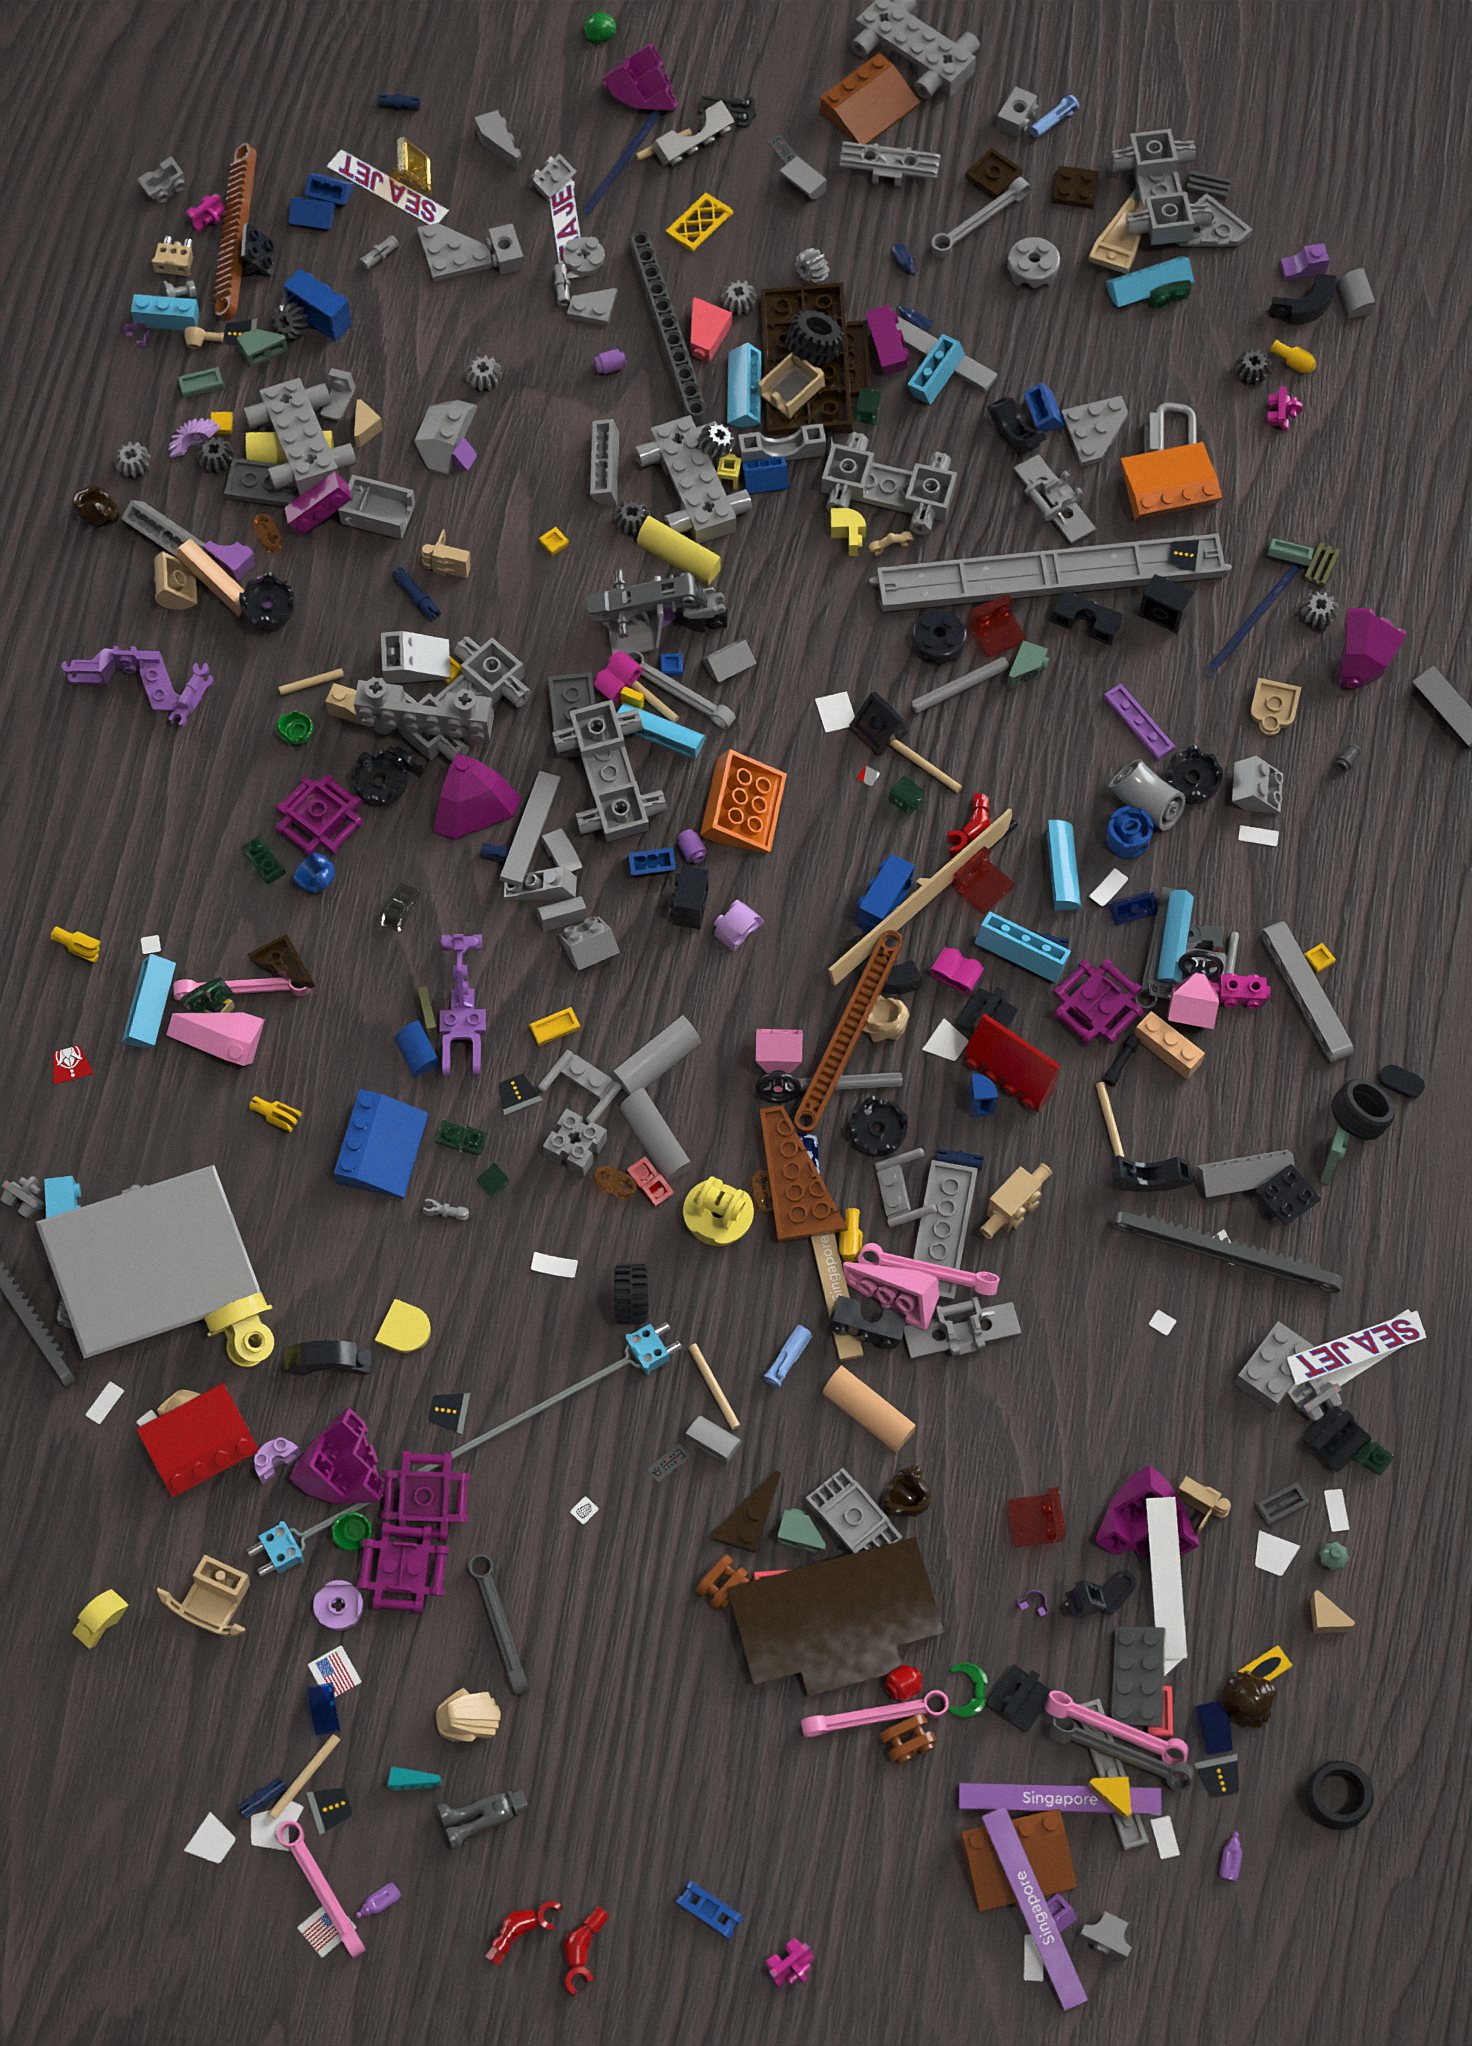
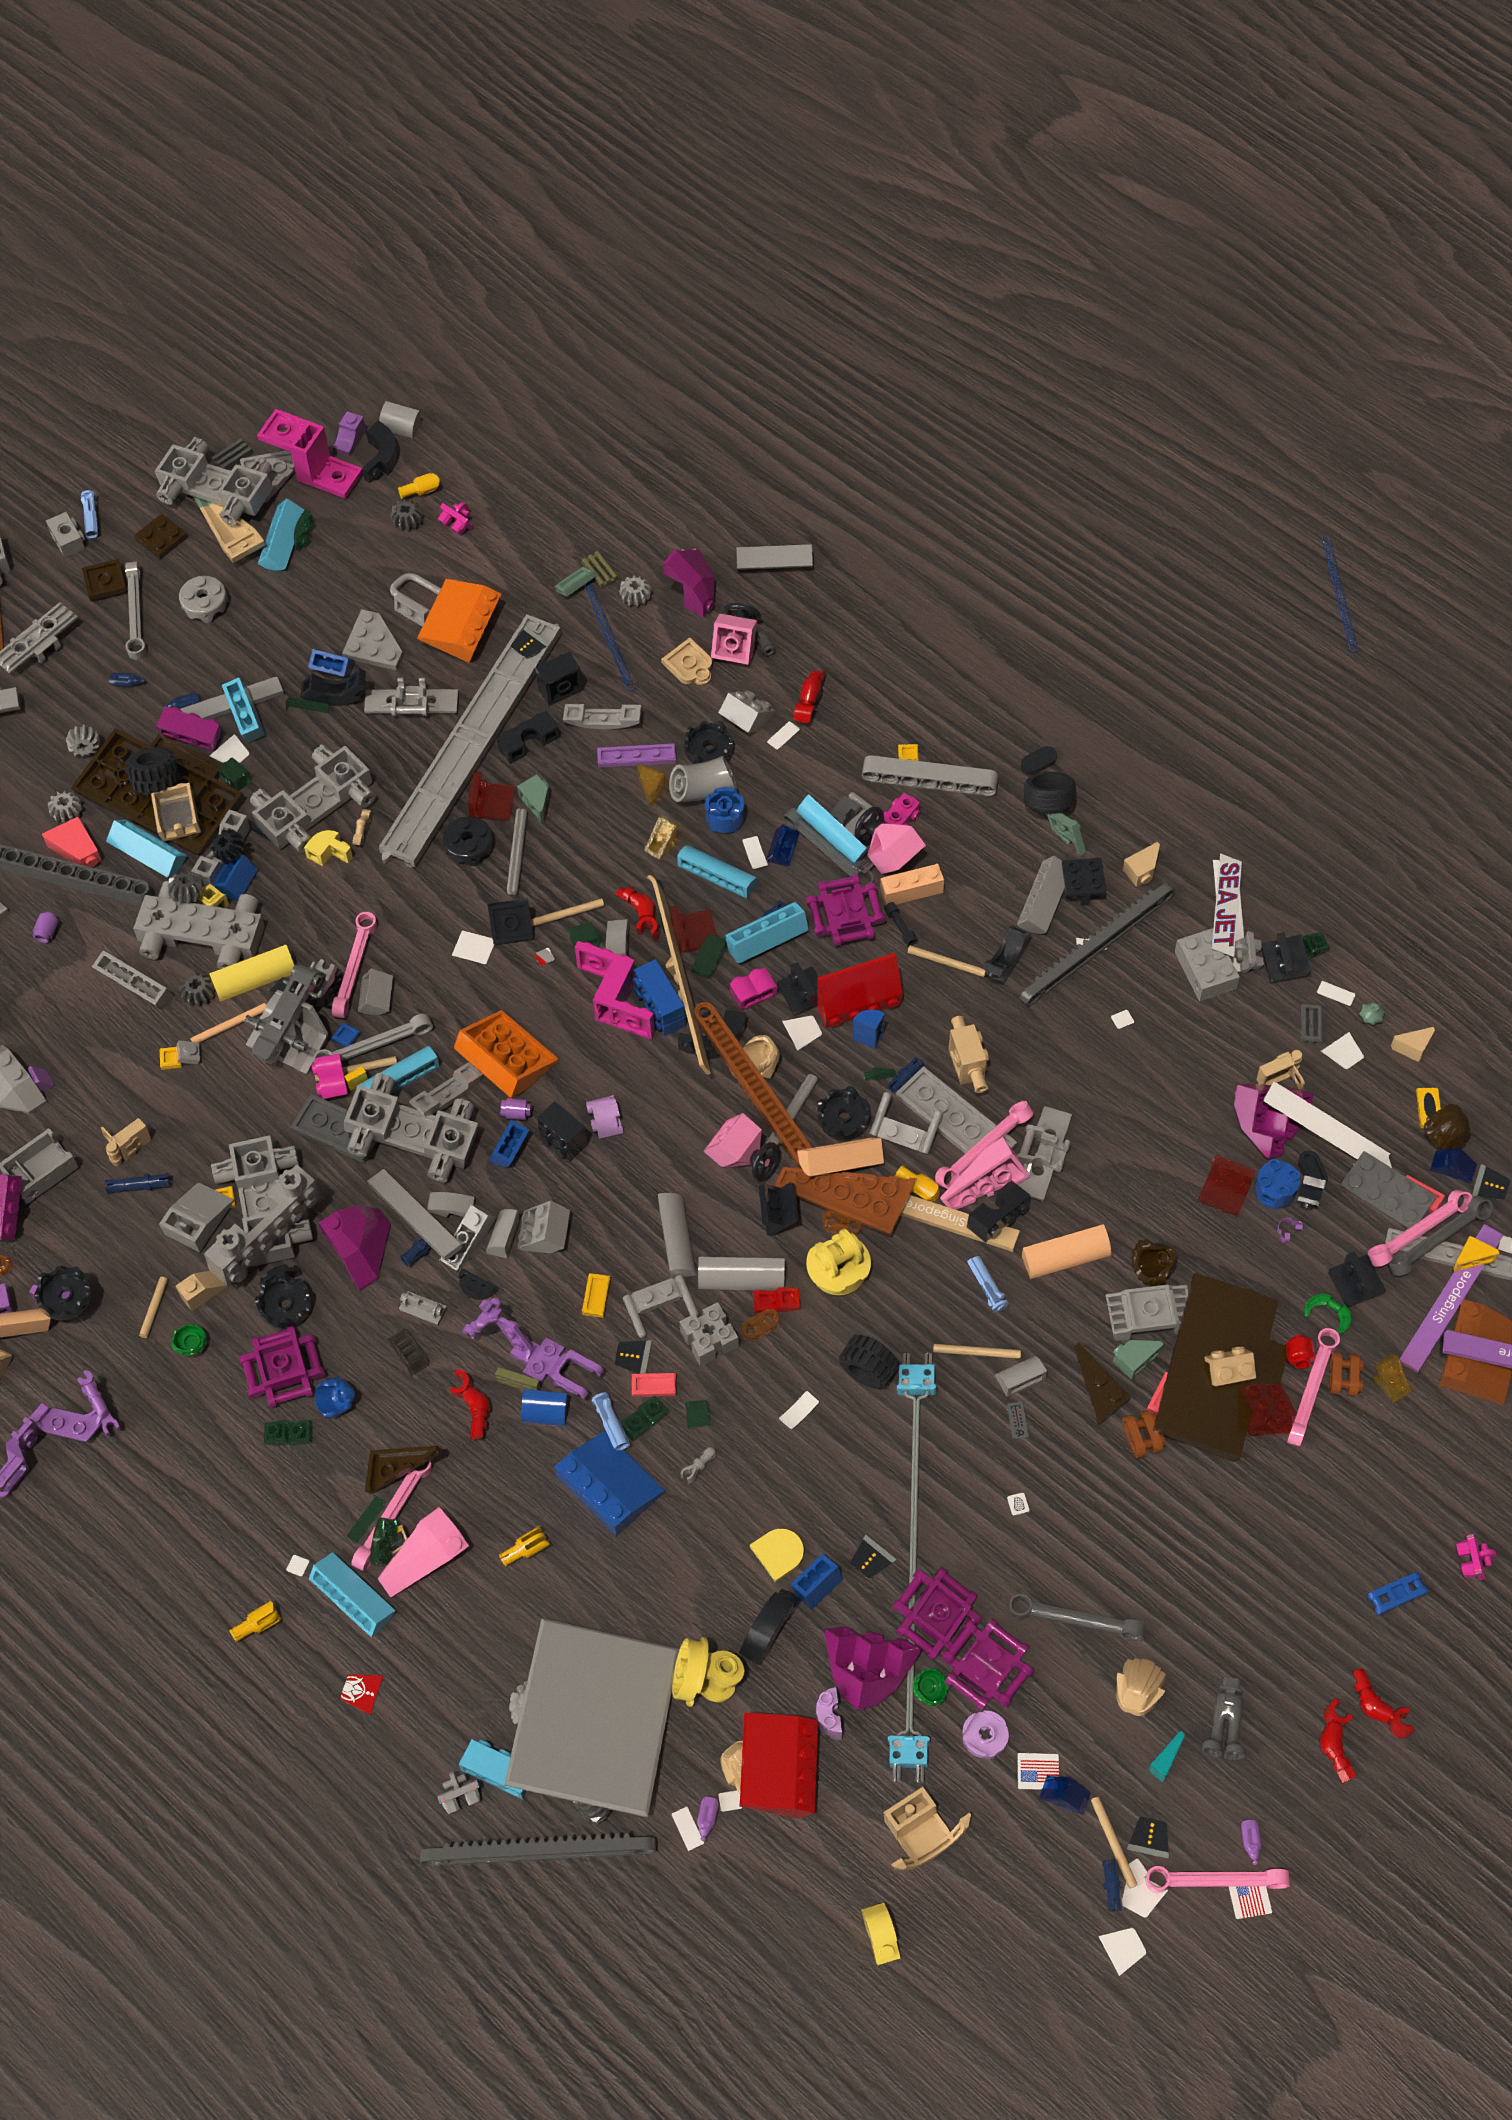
camera: 55 degrees left, 5 degrees down
(123, 1411) = (707, 1816): none -> medium lavender piece
(224, 971) = (366, 1519): none -> clear green piece
(386, 990) = (477, 1404): none -> red piece
(394, 1375) = (817, 1581): none -> blue brick
(437, 1112) = (611, 1423): none -> light blue piece
(448, 891) = (421, 1307): none -> light grey hinge
(497, 922) = (475, 1286): none -> black tile
(499, 1127) = (653, 1384): none -> coral tile
(566, 550) = (188, 1052): none -> light grey plate
(615, 563) = (228, 1024): none -> light nougat bar
(668, 780) = (446, 1093): none -> light grey slope
(697, 640) = (341, 1003): none -> bright pink piece
(737, 1123) = (778, 1207): none -> black bracket
(784, 446) = (228, 845): none -> black gear
(819, 1682) = (1270, 1409): none -> clear red bracket
(827, 1149) = (841, 1156): none -> light nougat brick
(837, 1622) = (1231, 1366): none -> tan bracket
(866, 851) = (614, 990): none -> dark pink bracket
(893, 390) = (229, 749): none -> white sticker
(923, 824) = (617, 936): none -> light grey slope
(931, 1786) = (1392, 1378): none -> clear yellow slope
(945, 1134) = (879, 1073): none -> clear green bar
(962, 912) = (709, 955): none -> clear green slope
(985, 415) = (306, 704): none -> clear green piece
(1060, 797) = (661, 838): none -> clear yellow slope
(1071, 1562) = (1277, 1184): none -> blue brick
(1114, 753) = (651, 782): none -> clear yellow slope
(1155, 665) = (602, 718): none -> light grey slope
(1248, 243) = (310, 453): none -> dark pink bracket
(1314, 829) = (809, 694): none -> red piece
(1327, 724) = (735, 633): none -> bright pink piece
(1349, 1245) = (1142, 865): none -> tan slope

